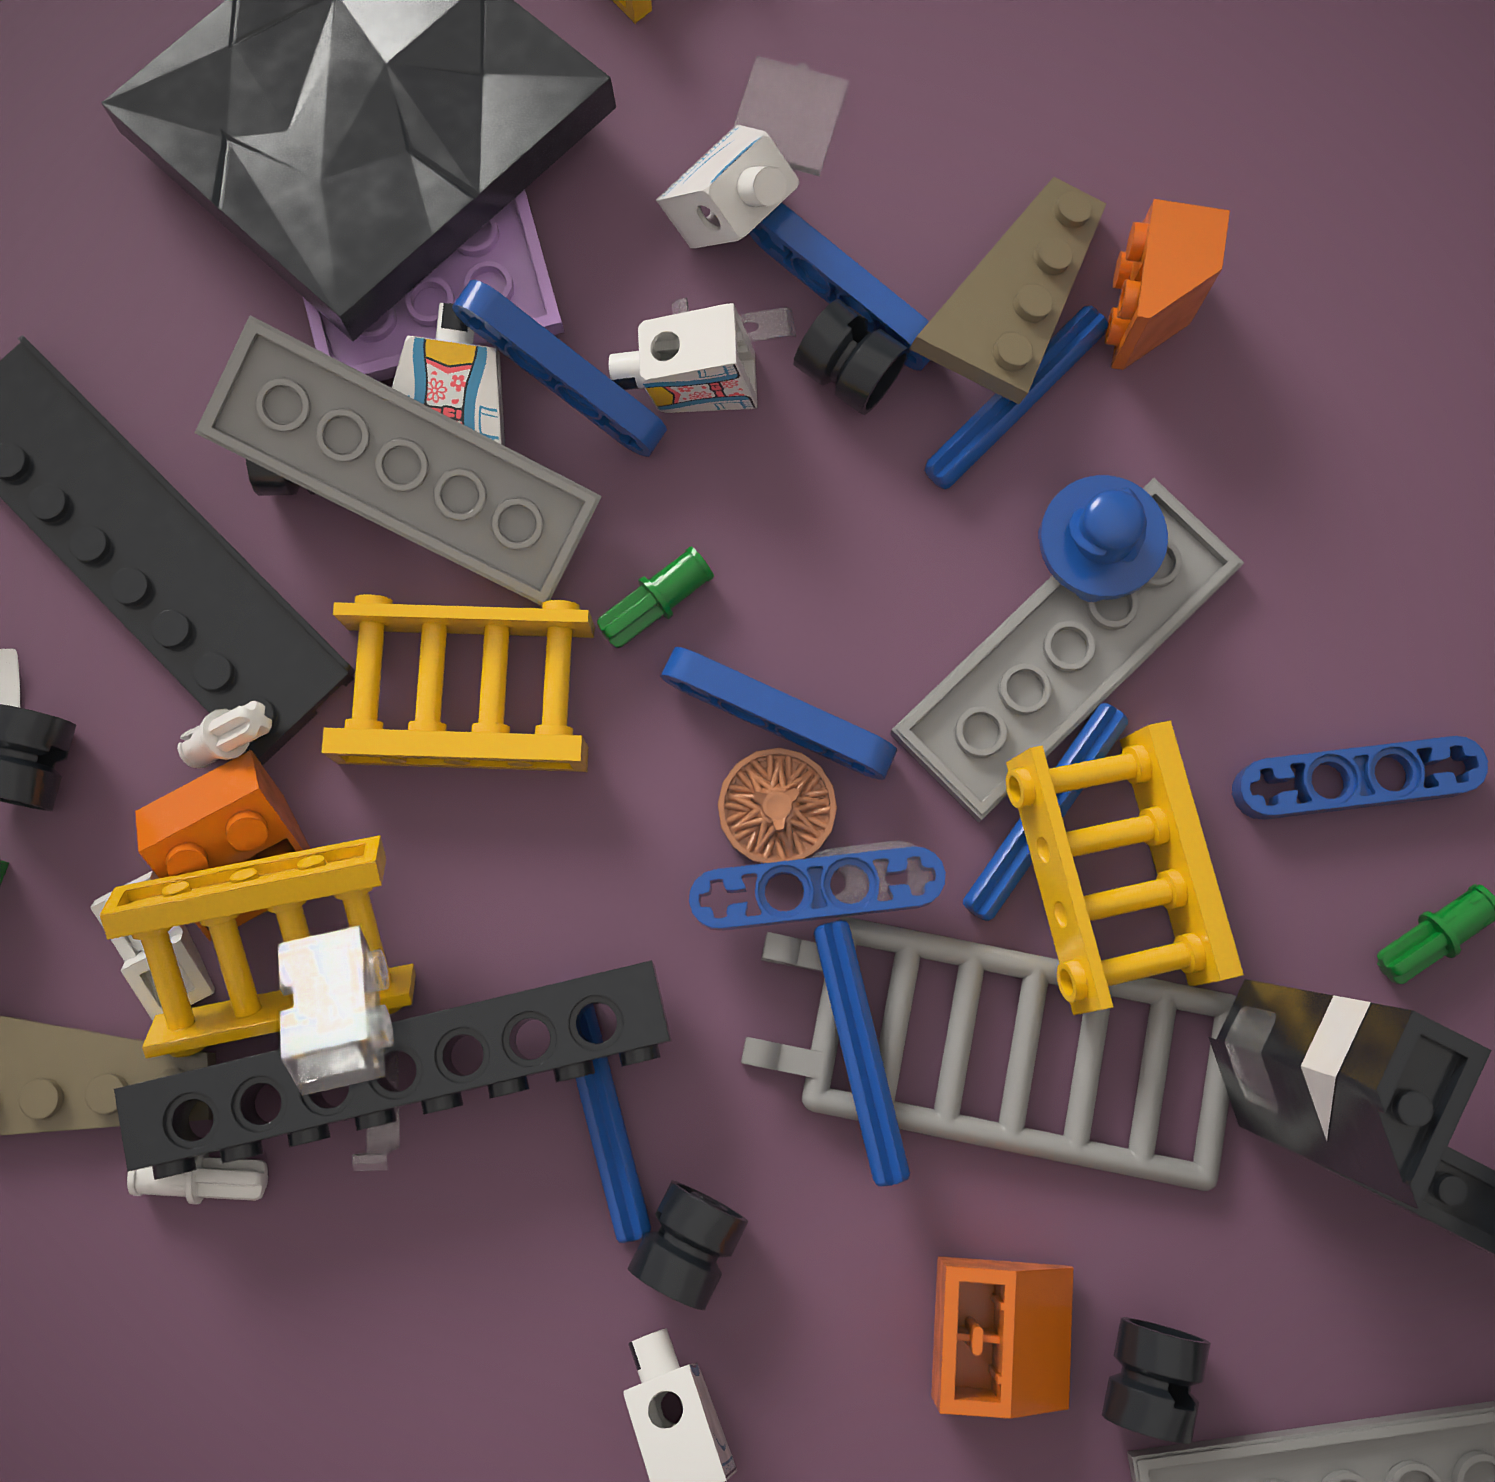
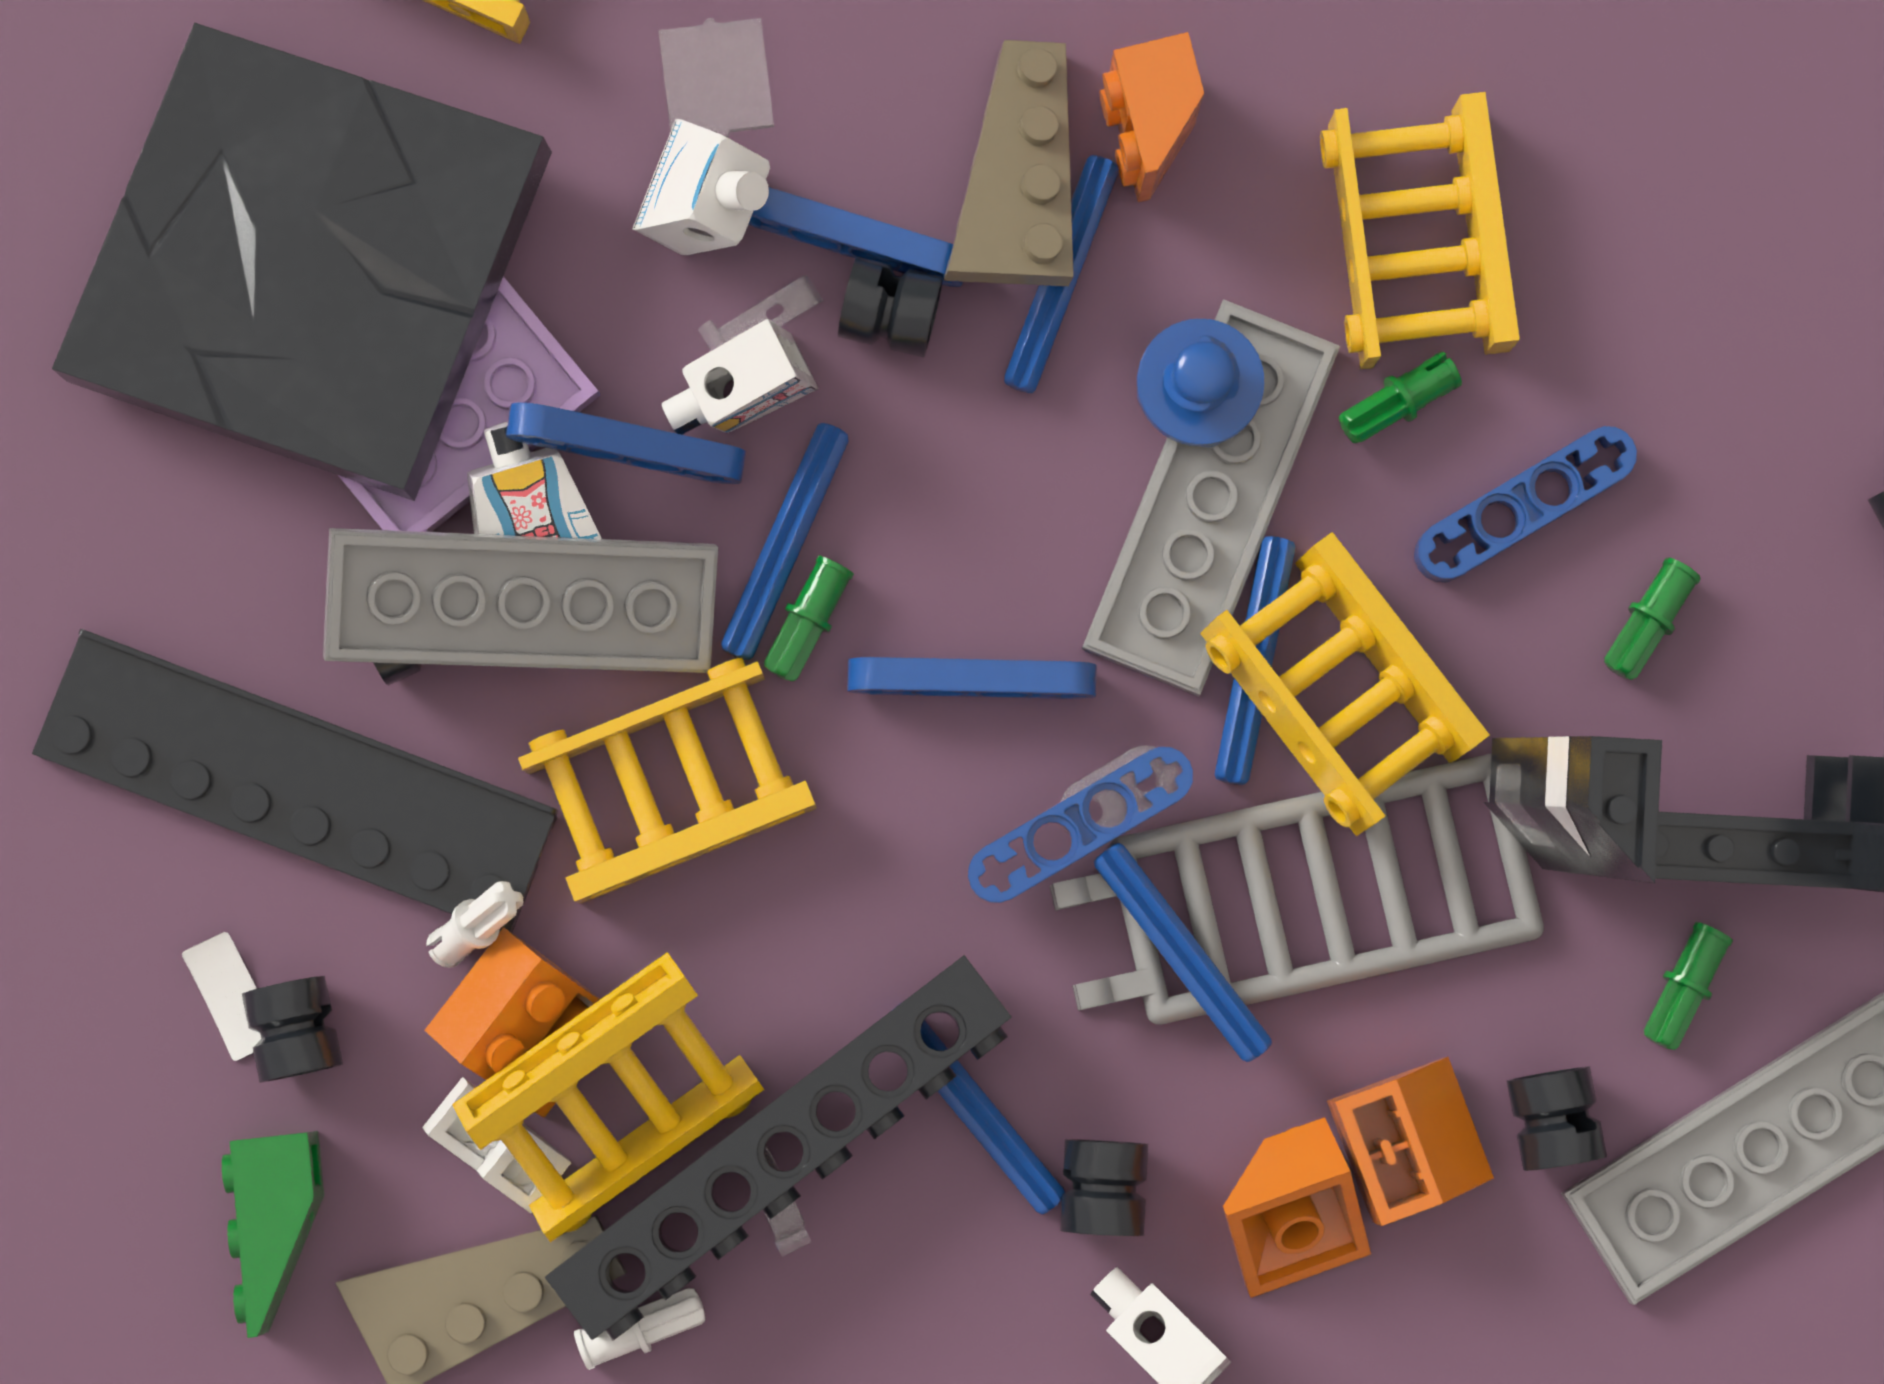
camera: 30 degrees left, 5 degrees up
(337, 1017) = (707, 1121): clear brick -> none
(666, 523) = (785, 541): none -> blue axle
(777, 806) = (1008, 764): nougat wheel -> none
(862, 1351) = (1295, 1210): none -> orange slope
(1283, 632) = (1401, 398): none -> green axle
(1336, 1303) = (1687, 986): none -> green axle
(1424, 479) = (1471, 194): none -> yellow fence

